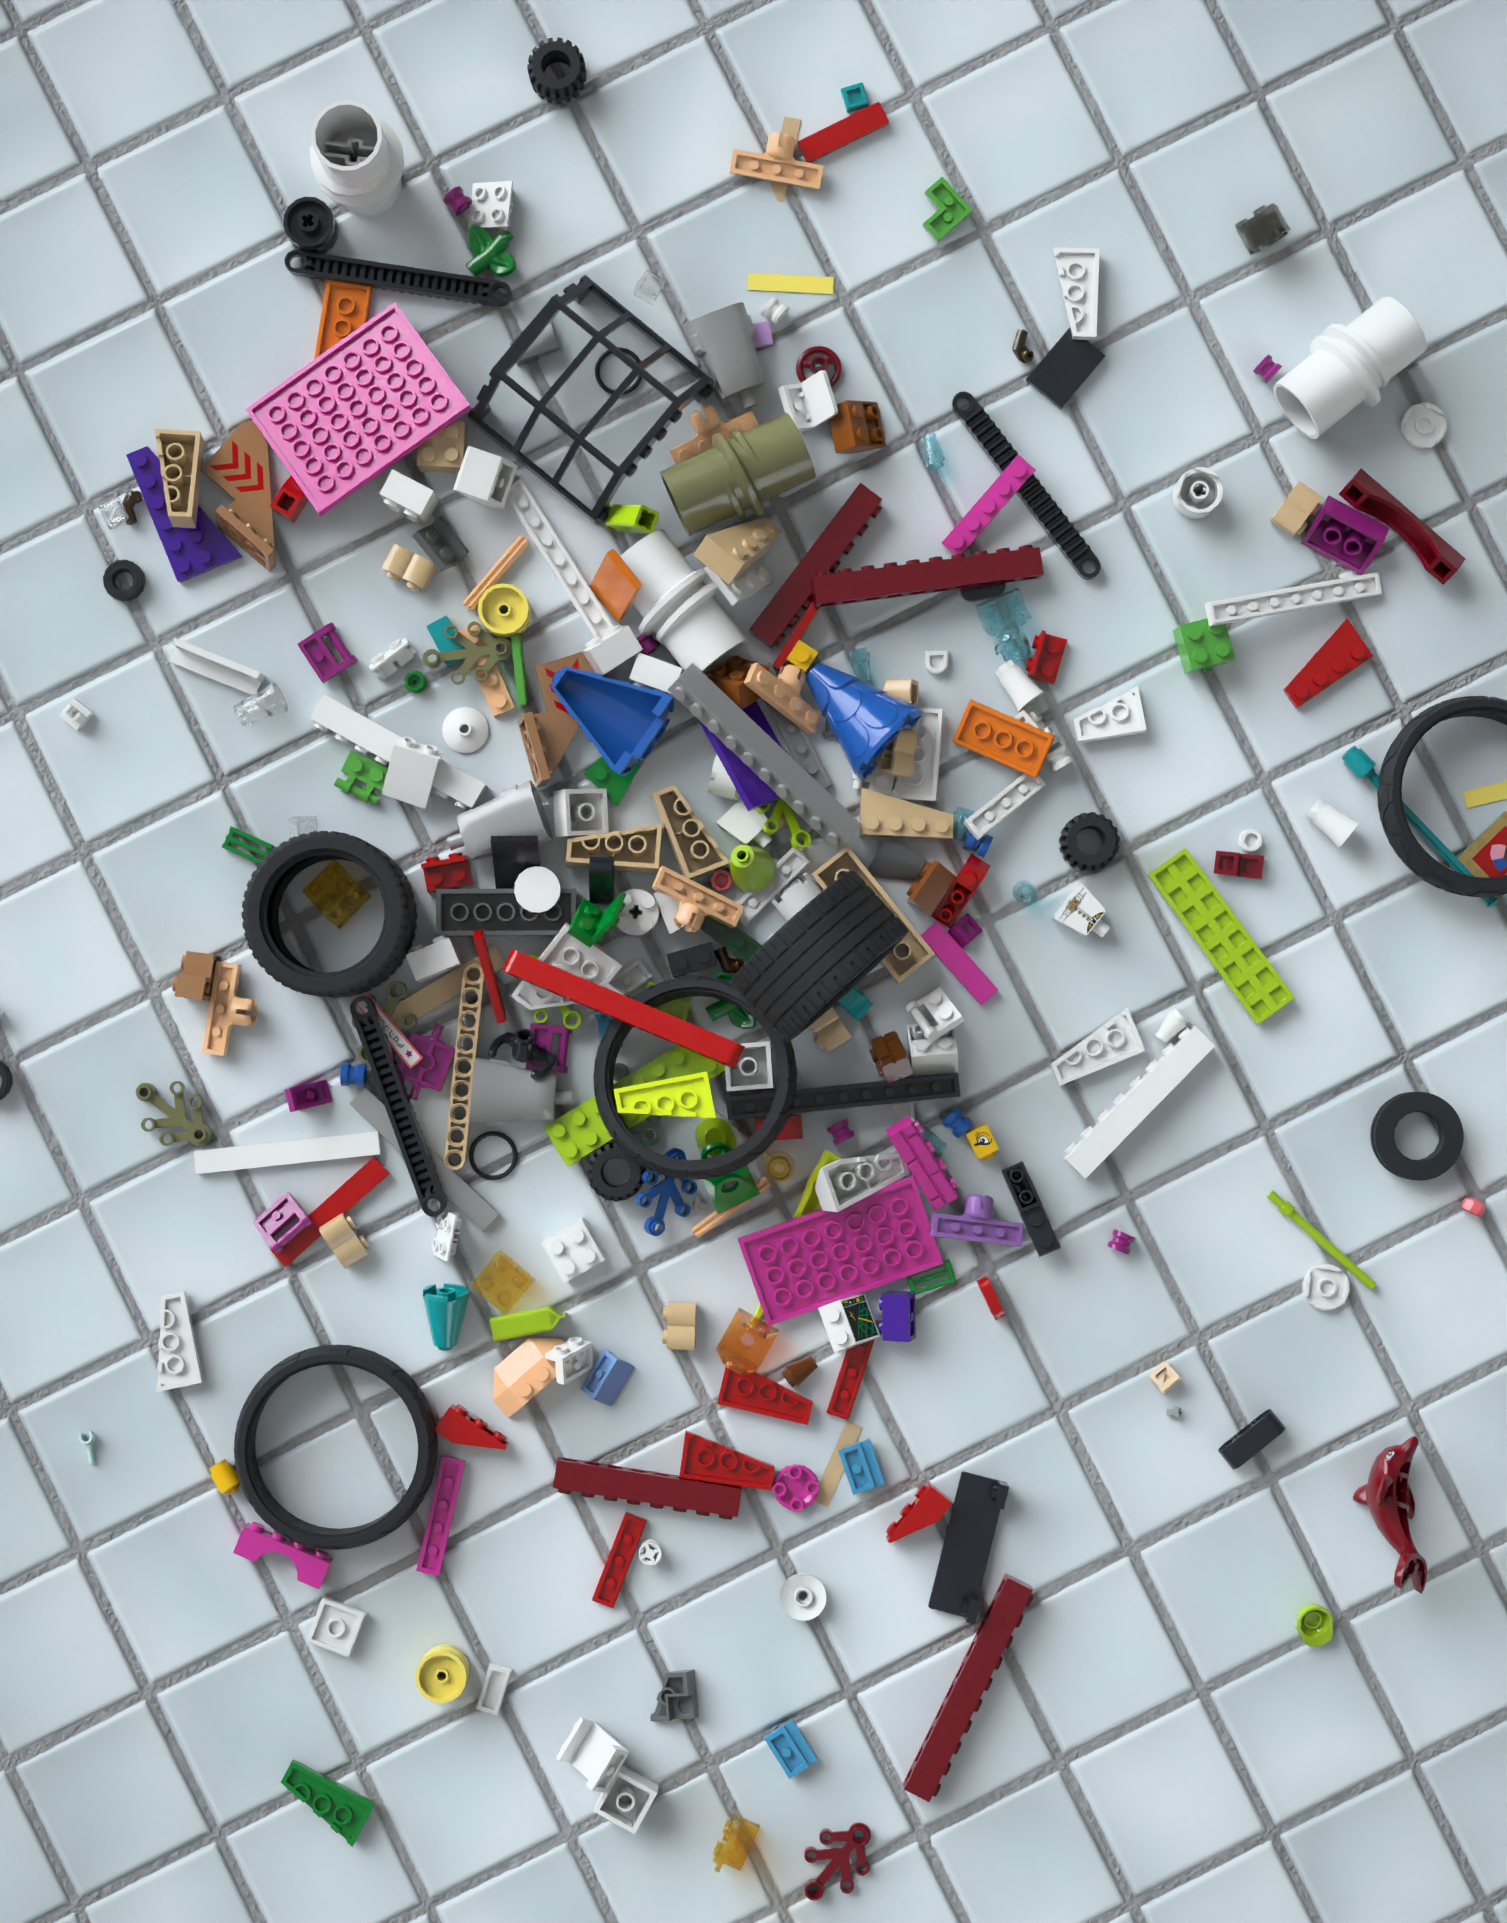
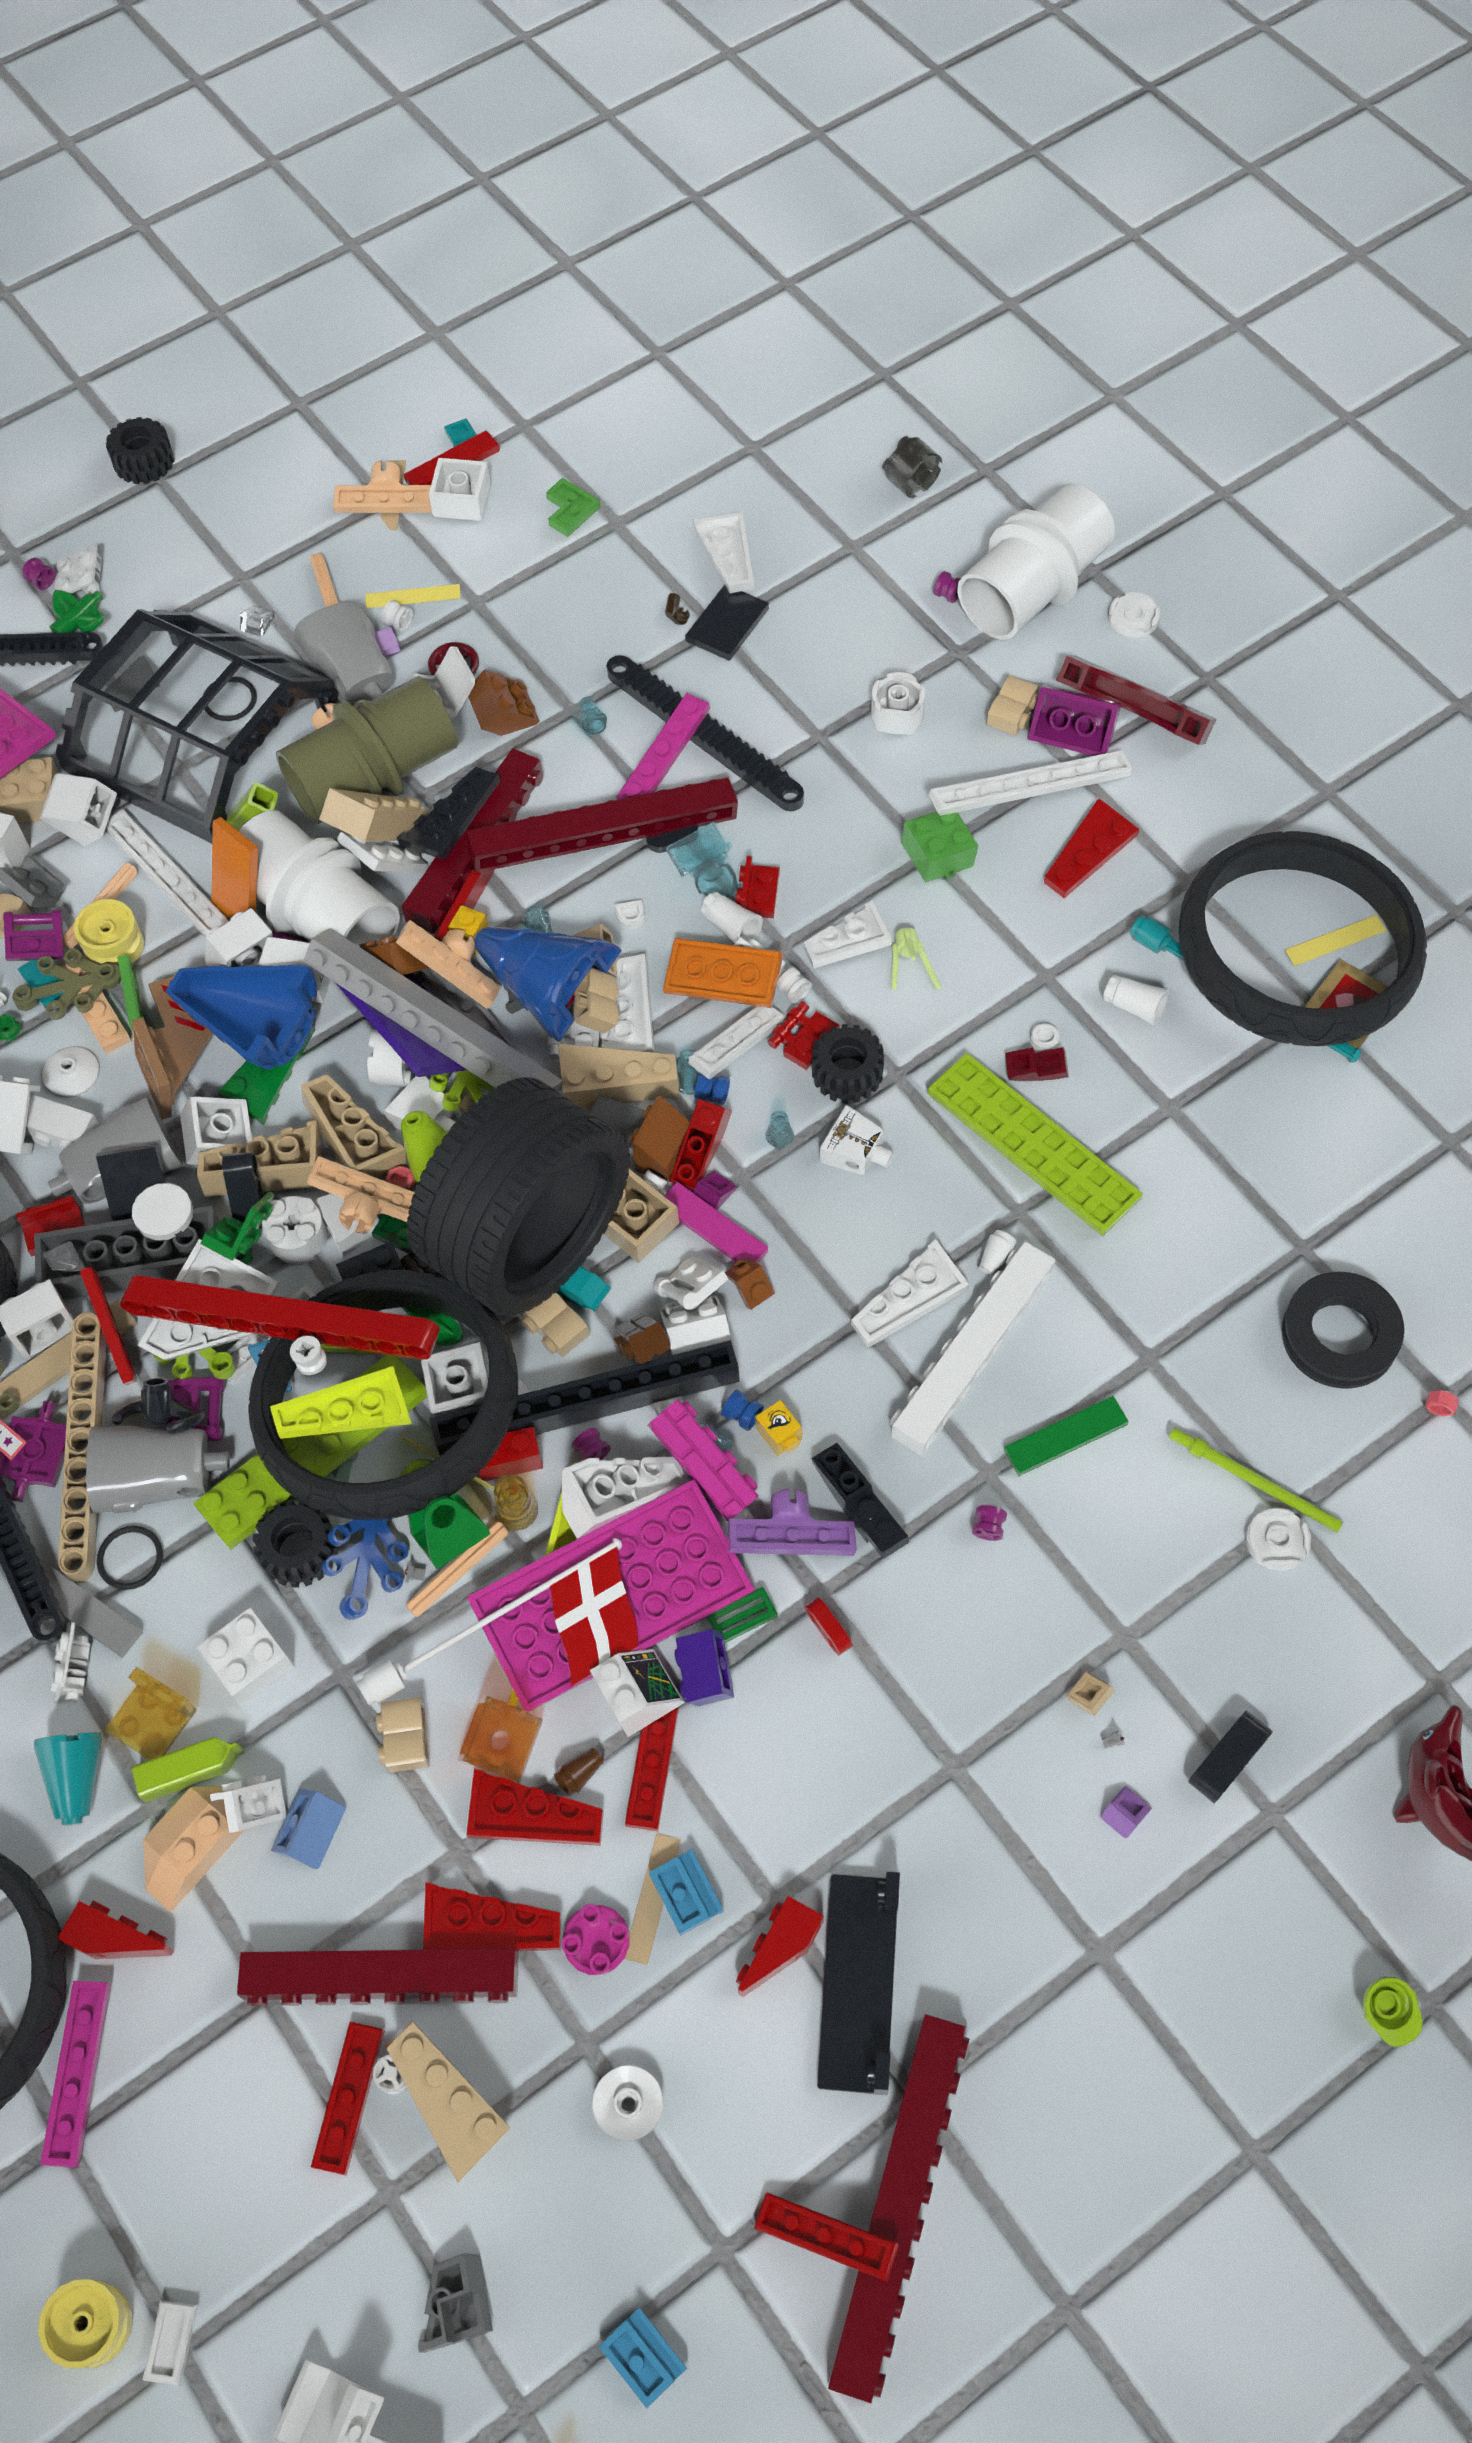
camera: 10 degrees left, 25 degrees down
(442, 609) = (36, 943): none -> magenta plate
(463, 919) = (64, 1258): none -> clear slope
(645, 1051) = (316, 1358): none -> white wheel
(688, 1582) = (450, 2106): none -> tan wedge
(715, 266) = (323, 579): none -> light nougat axle
(800, 549) = (451, 816): none -> black wing
(823, 1267) = (588, 1612): none -> flag
(847, 175) = (460, 489): none -> white brick
(918, 1701) = (827, 2236): none -> red tile
(919, 920) = (655, 1181): none -> white plate
(979, 1018) = (750, 1282): none -> dark orange bracket
(1064, 808) = (800, 1047): none -> red plate
(1158, 734) = (908, 945): none -> yellowish green plant
(1171, 1462) = (1125, 1812): none -> medium lavender slope
(1191, 1182) = (1065, 1436): none -> green tile

